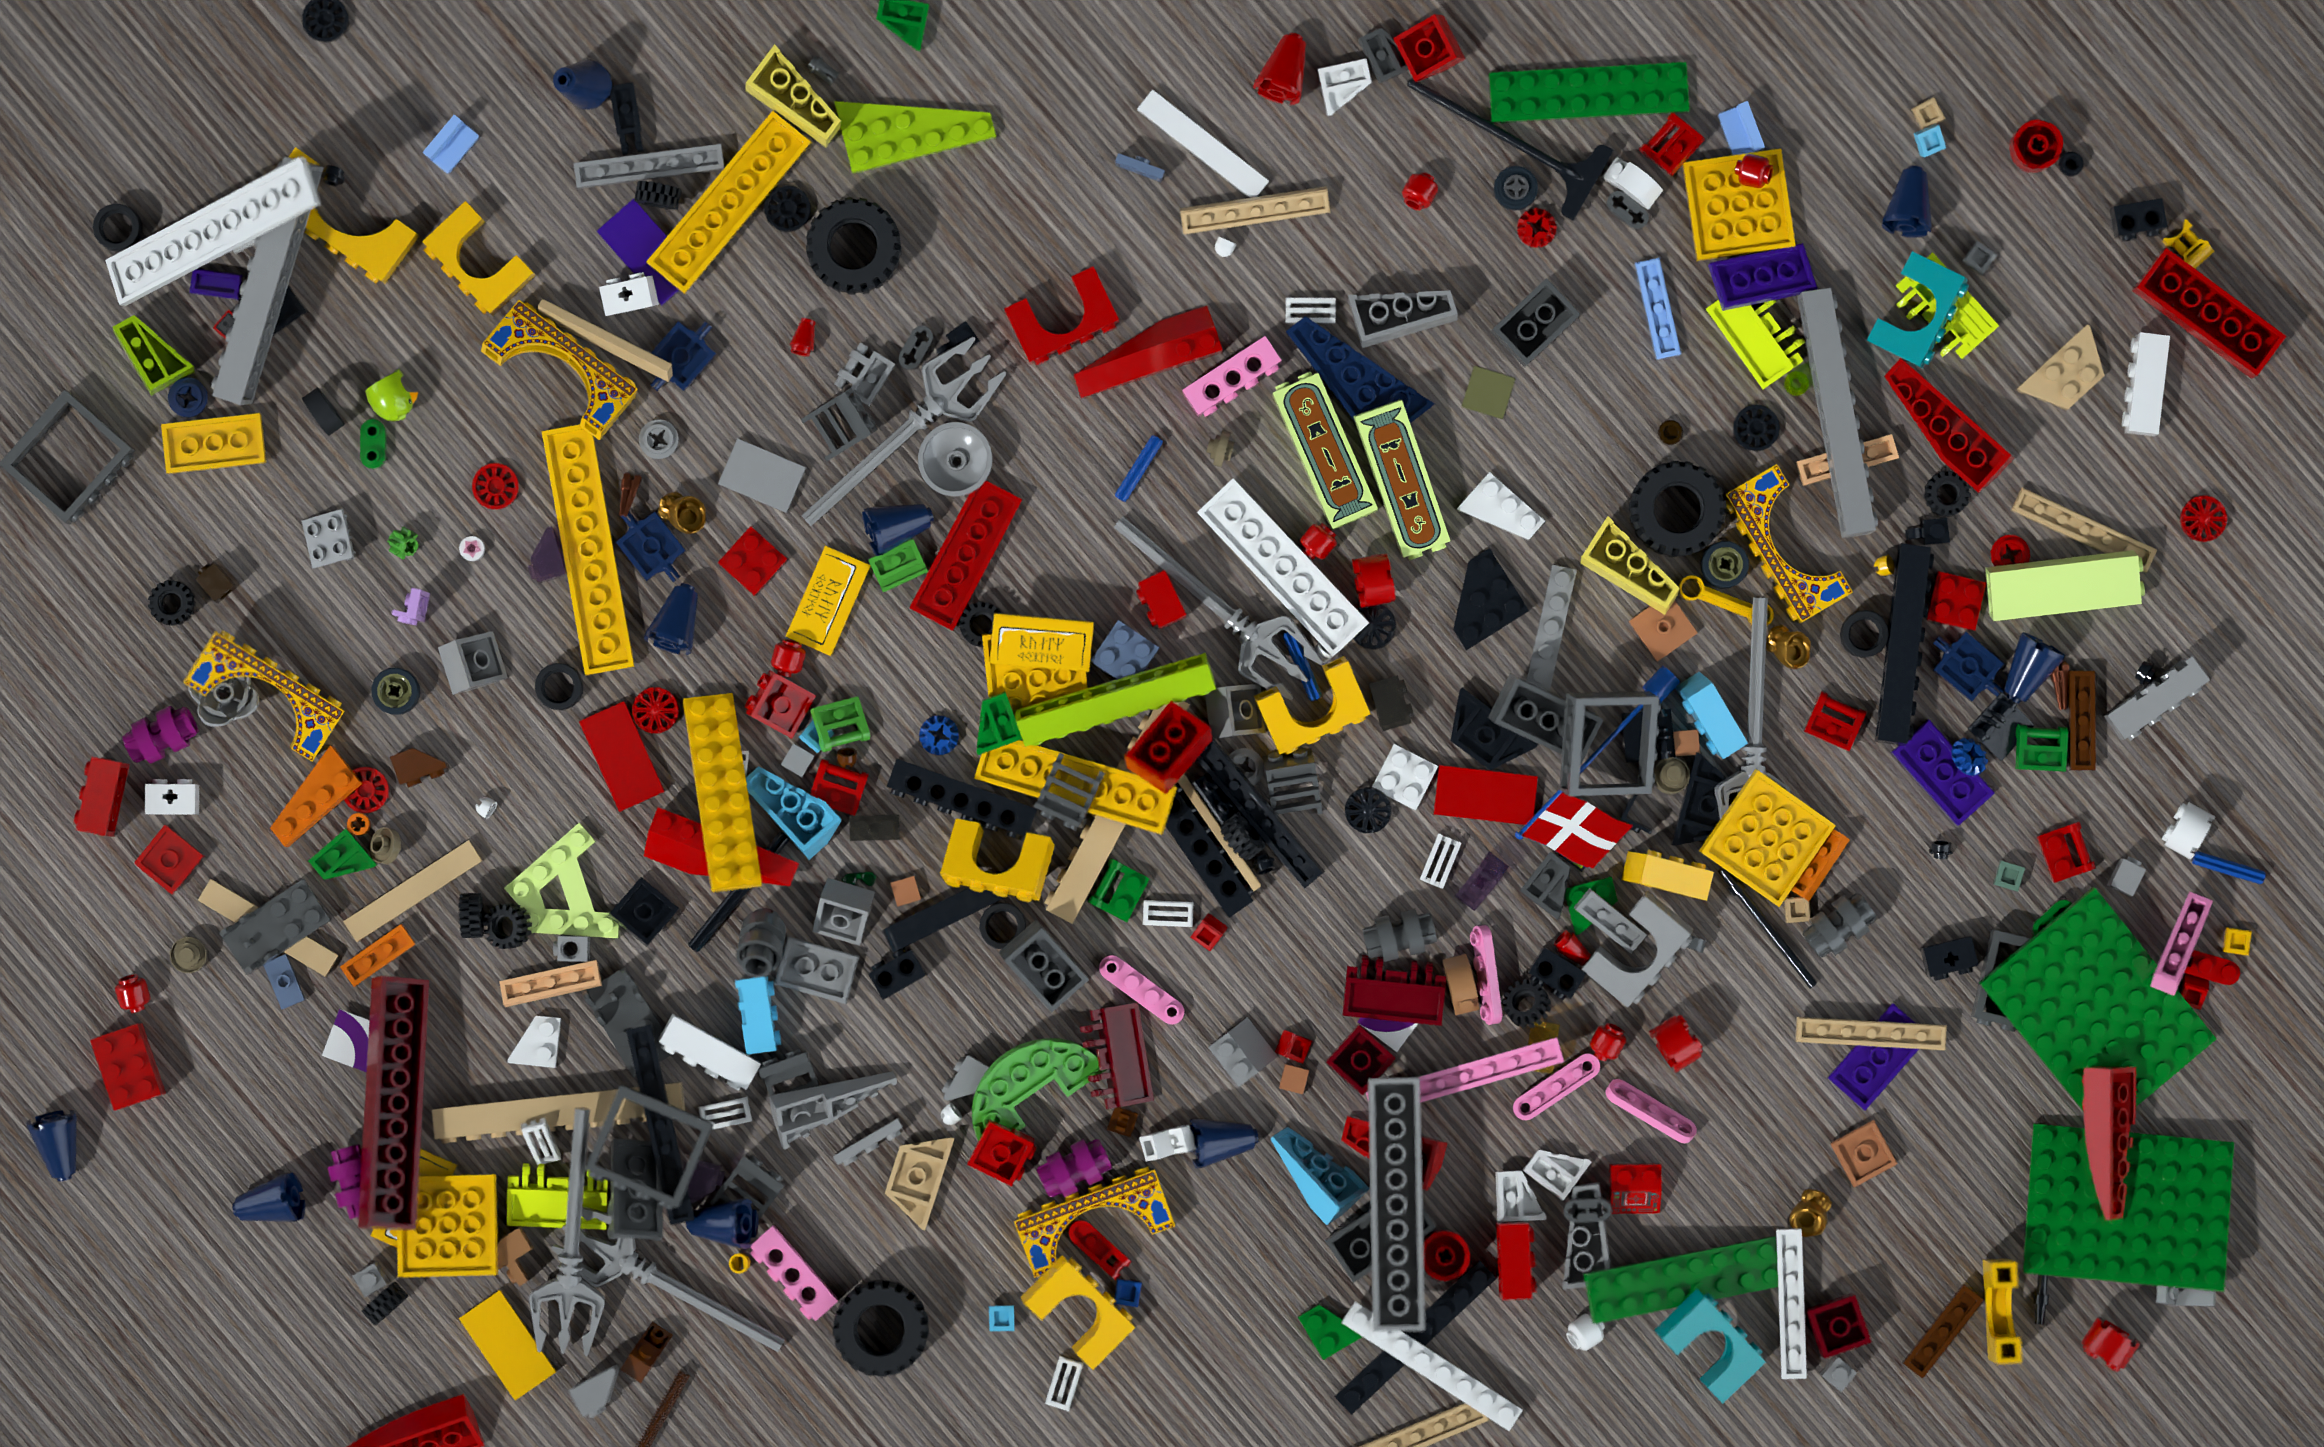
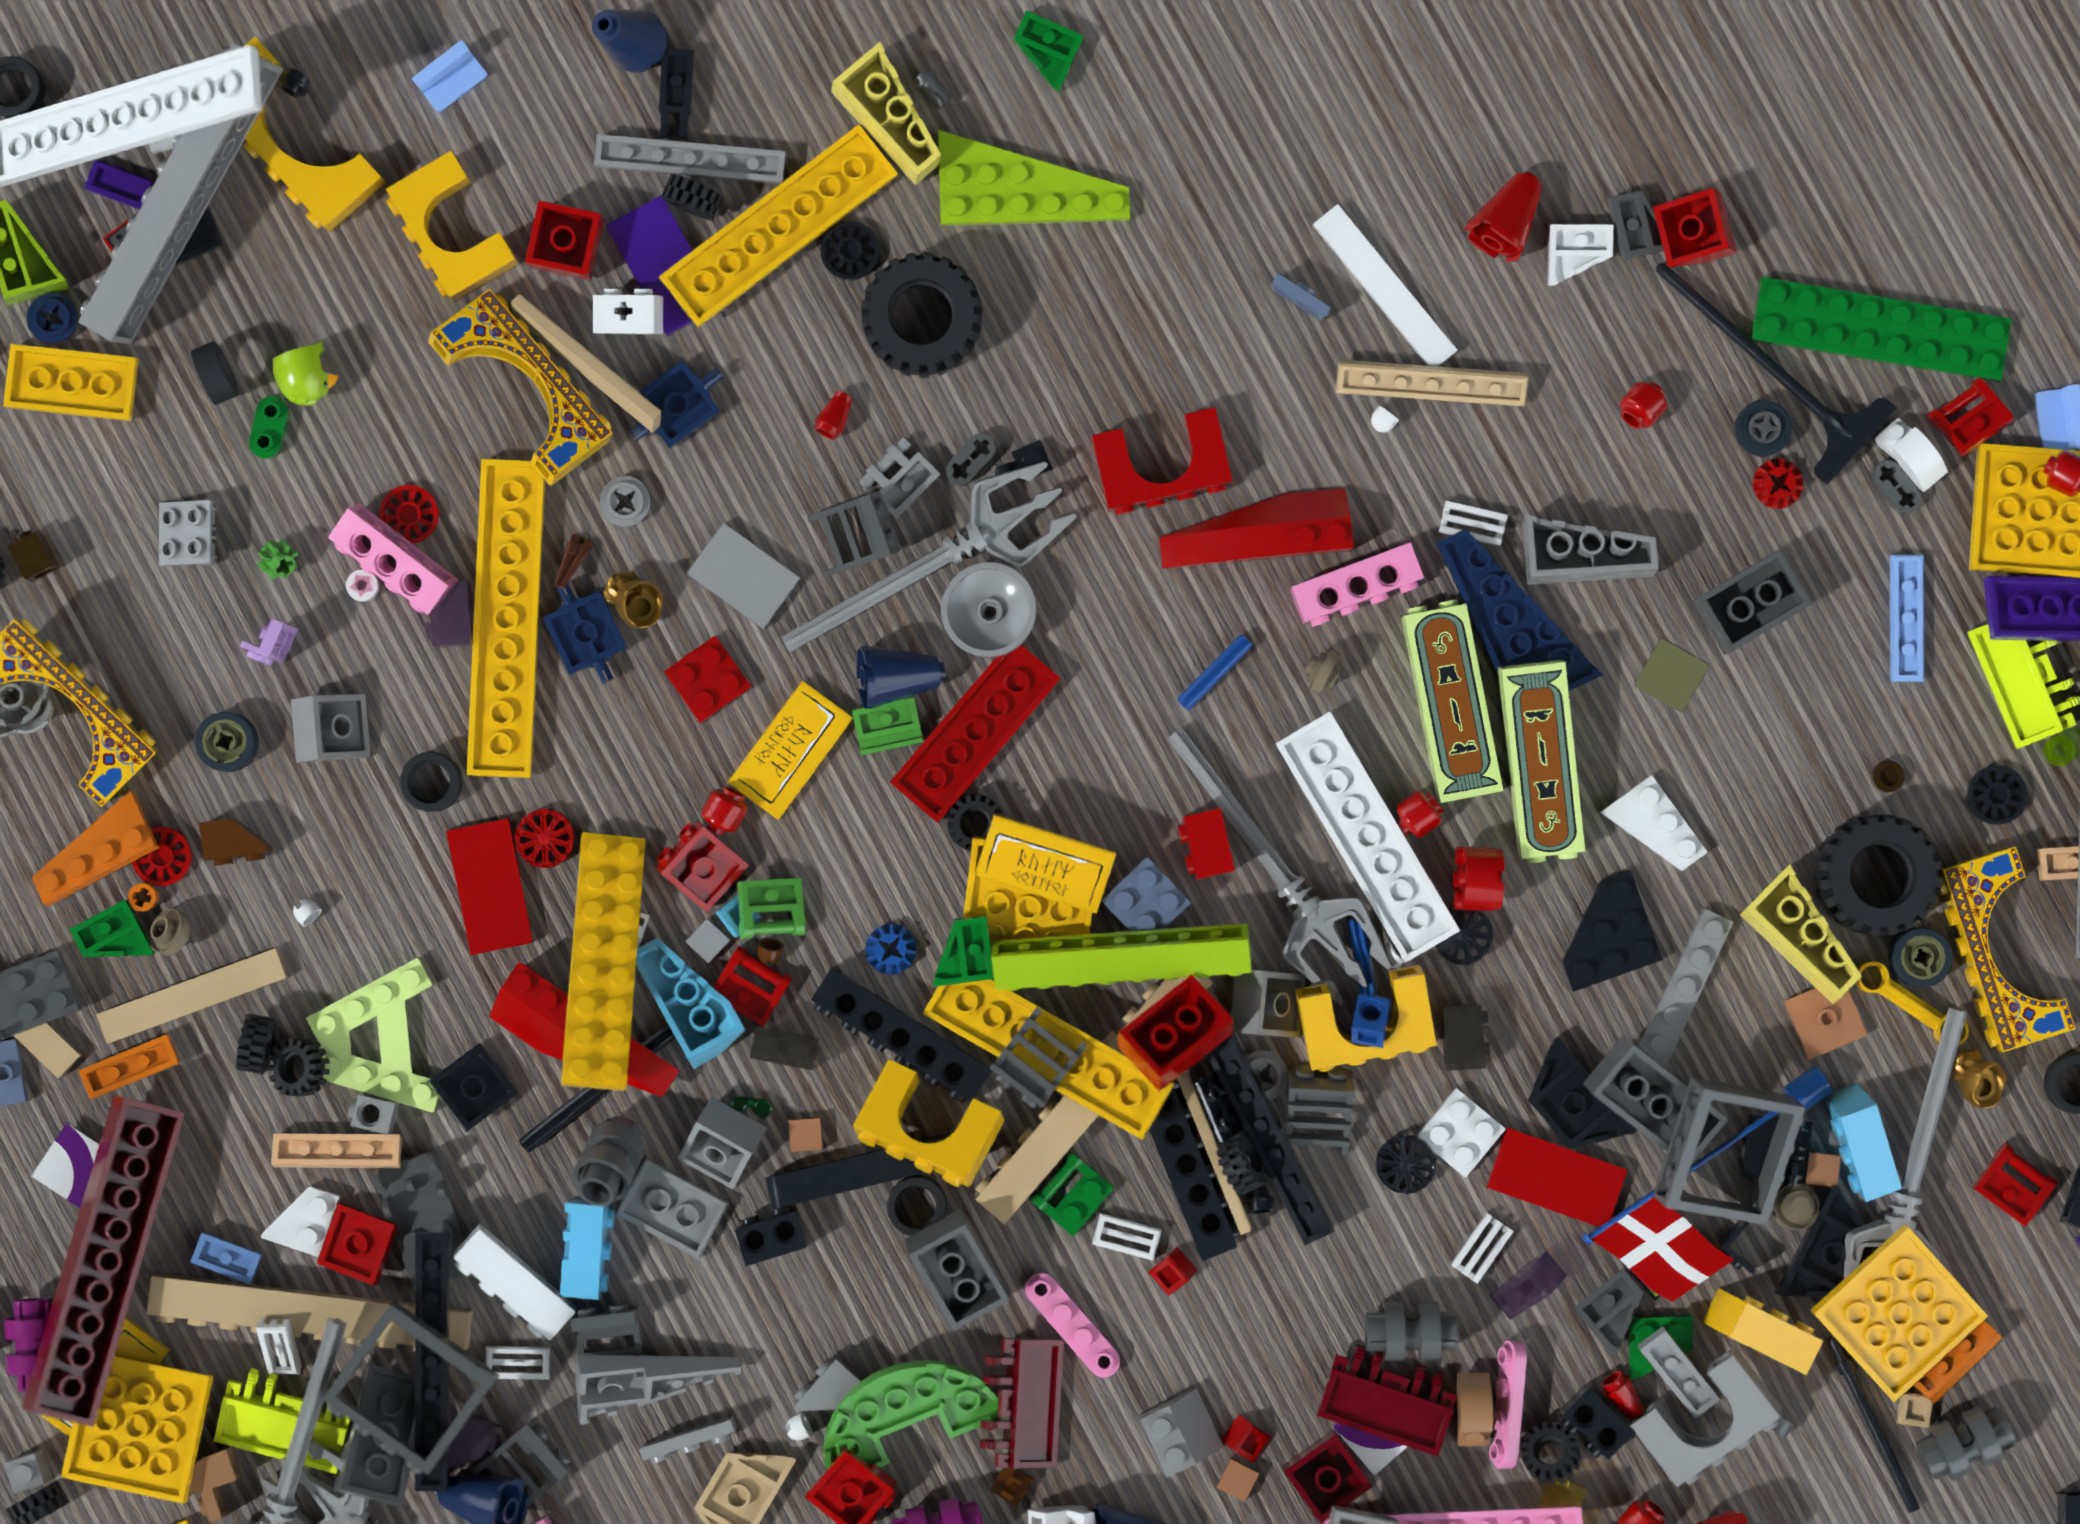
camera: 15 degrees right, 0 degrees up
(485, 1084) = (226, 1258): none -> medium blue plate
(504, 520) = (410, 560): none -> bright pink brick
(567, 250) = (564, 240): none -> red brick
(583, 1050) = (357, 1244): none -> red plate
(675, 621) = (594, 733): dark blue cone -> none
(1315, 714) = (1370, 1031): none -> blue brick

